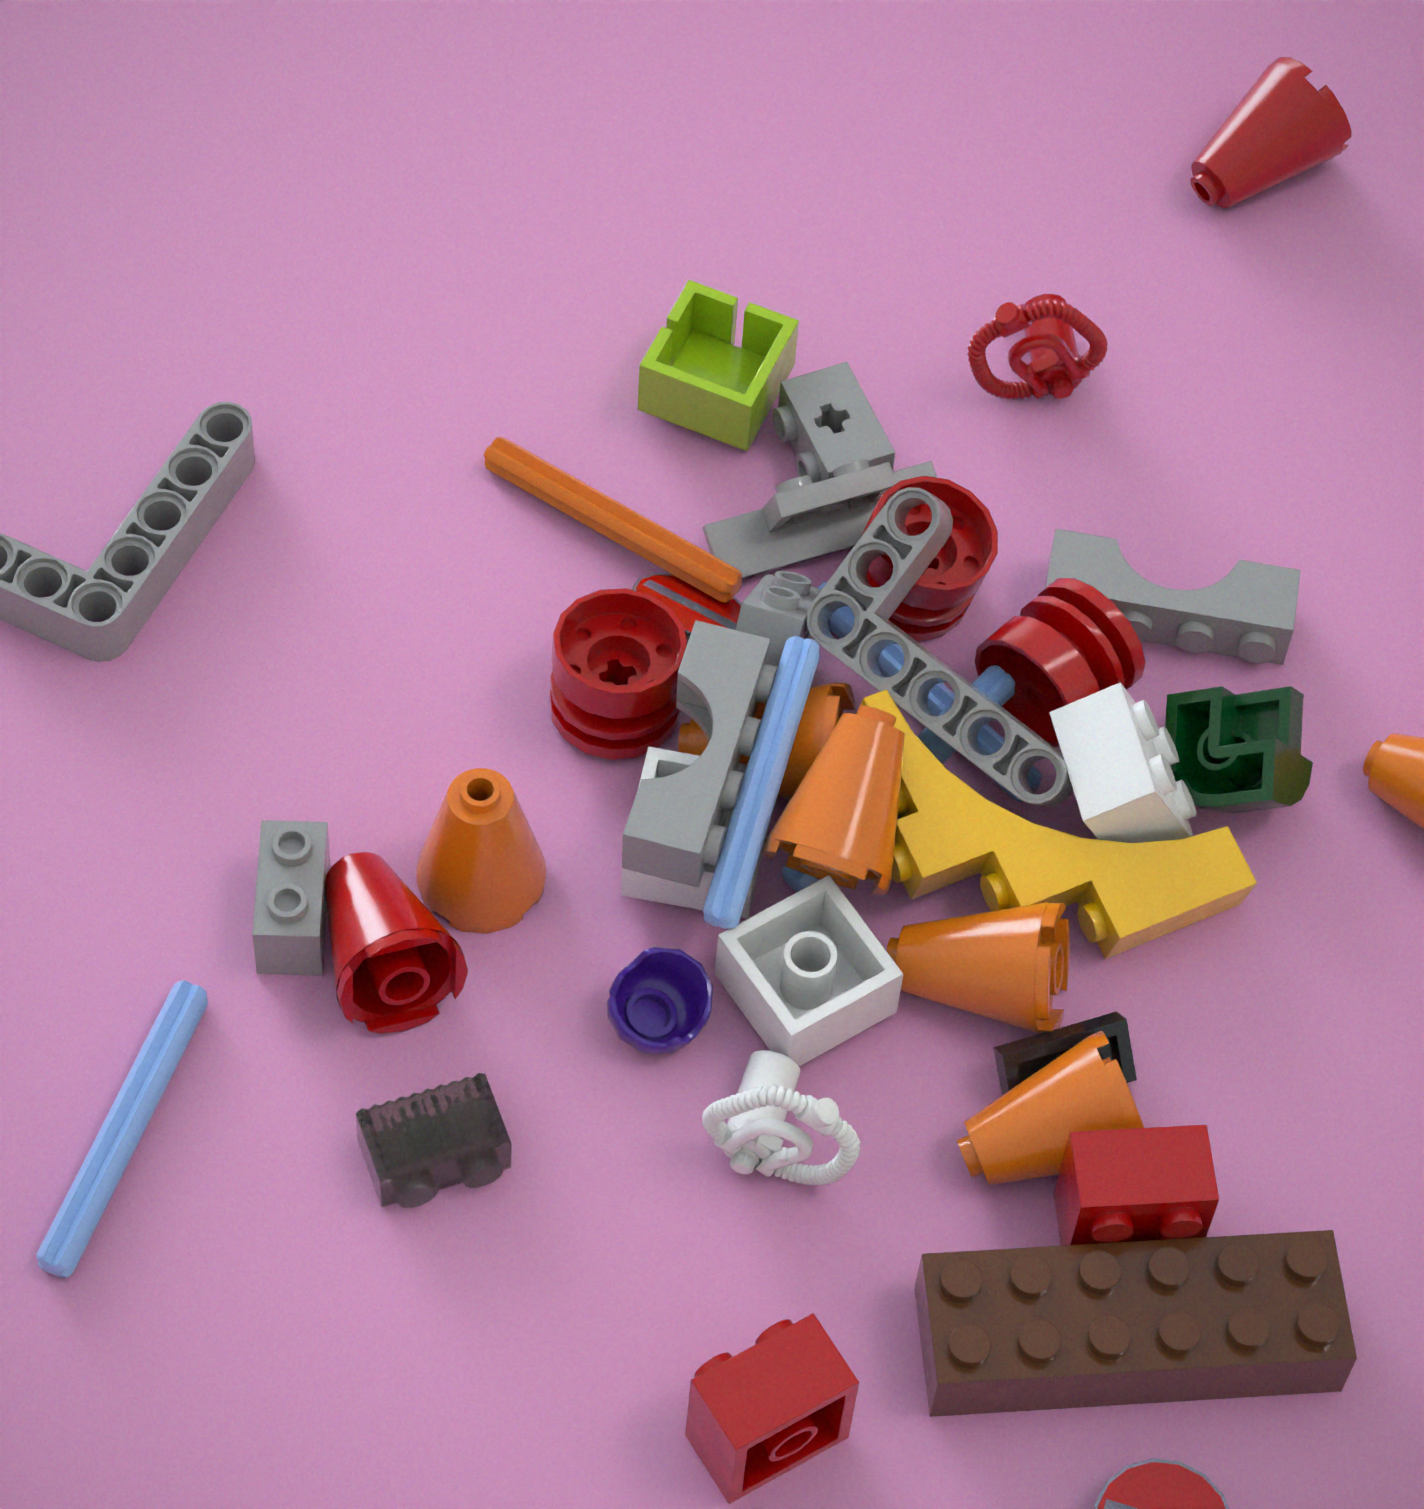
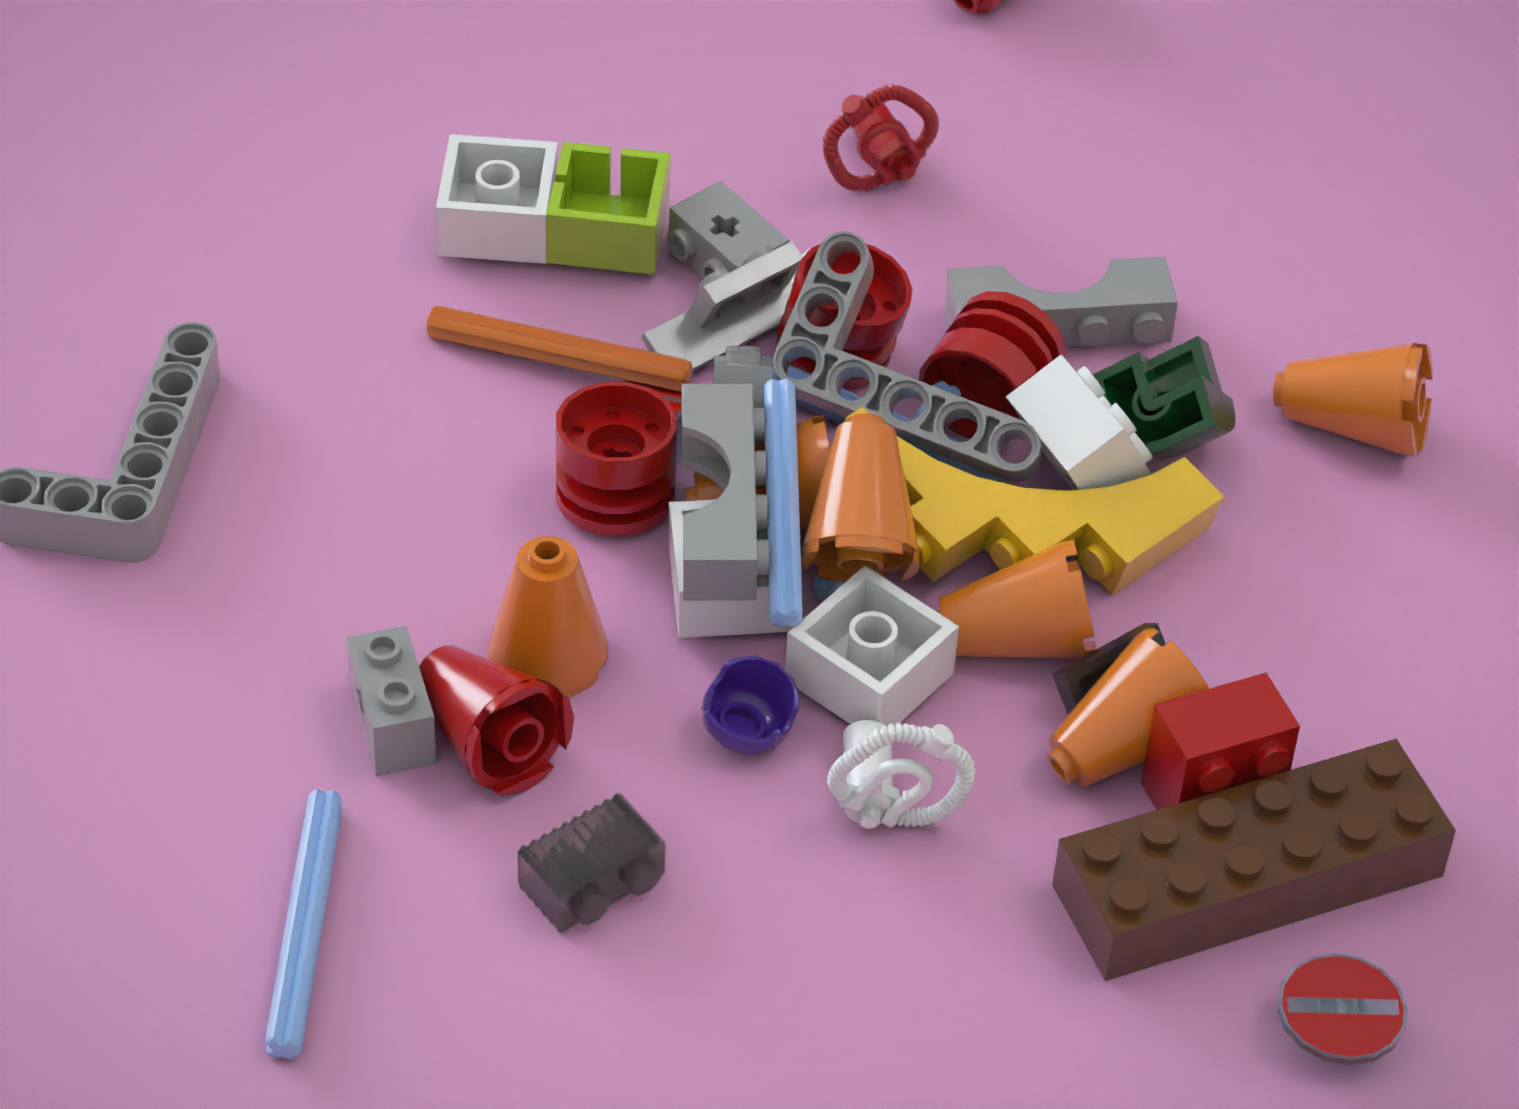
camera: 15 degrees left, 10 degrees down
(599, 323) = (495, 198): none -> white brick
(770, 1406) = (974, 991): red brick -> none

